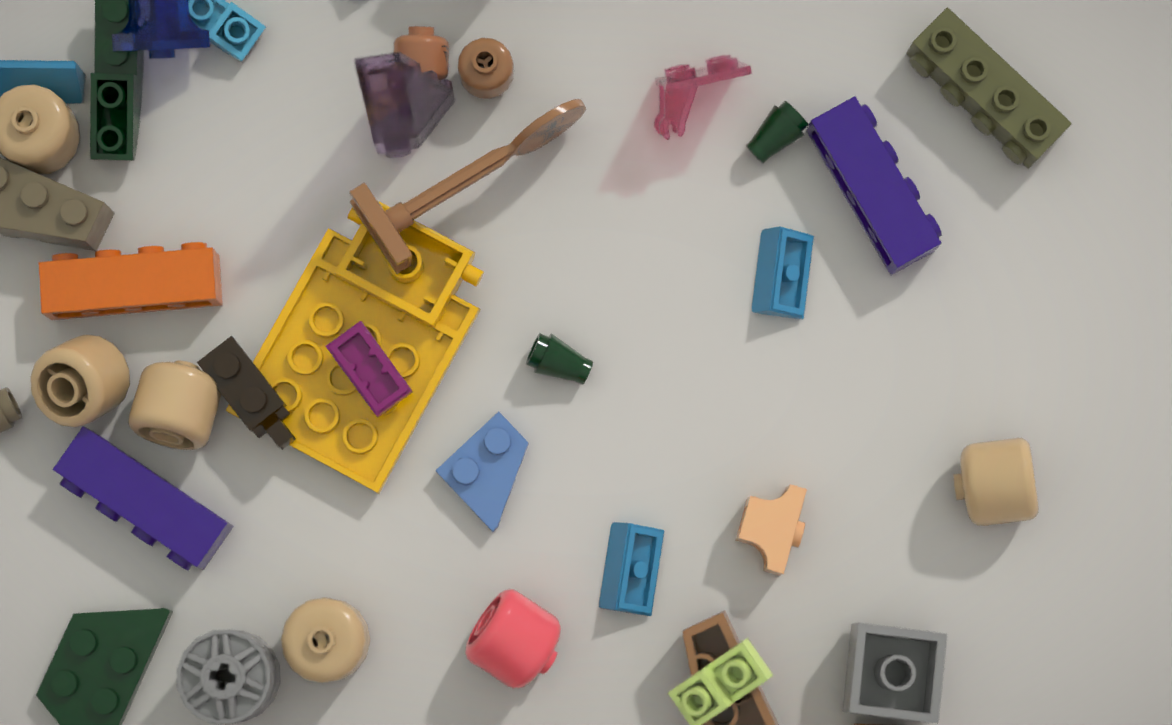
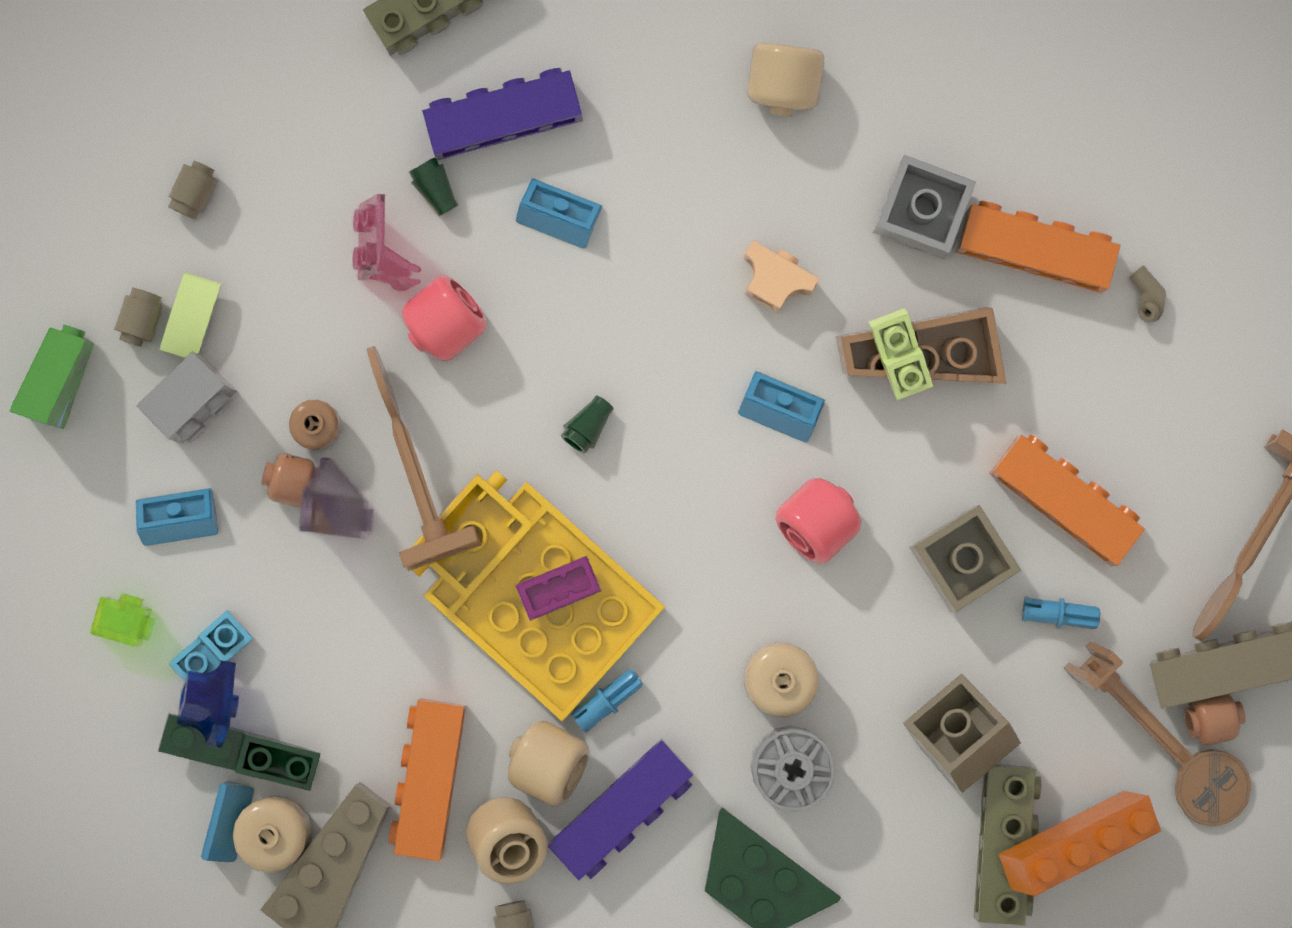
camera: 75 degrees left, 5 degrees up
(248, 391) = (551, 697): dark brown hinge -> none
(260, 454) = (607, 700): none -> dark azure axle
(486, 468) = (666, 509): medium blue wing -> none
(634, 175) = (443, 319): none -> coral head

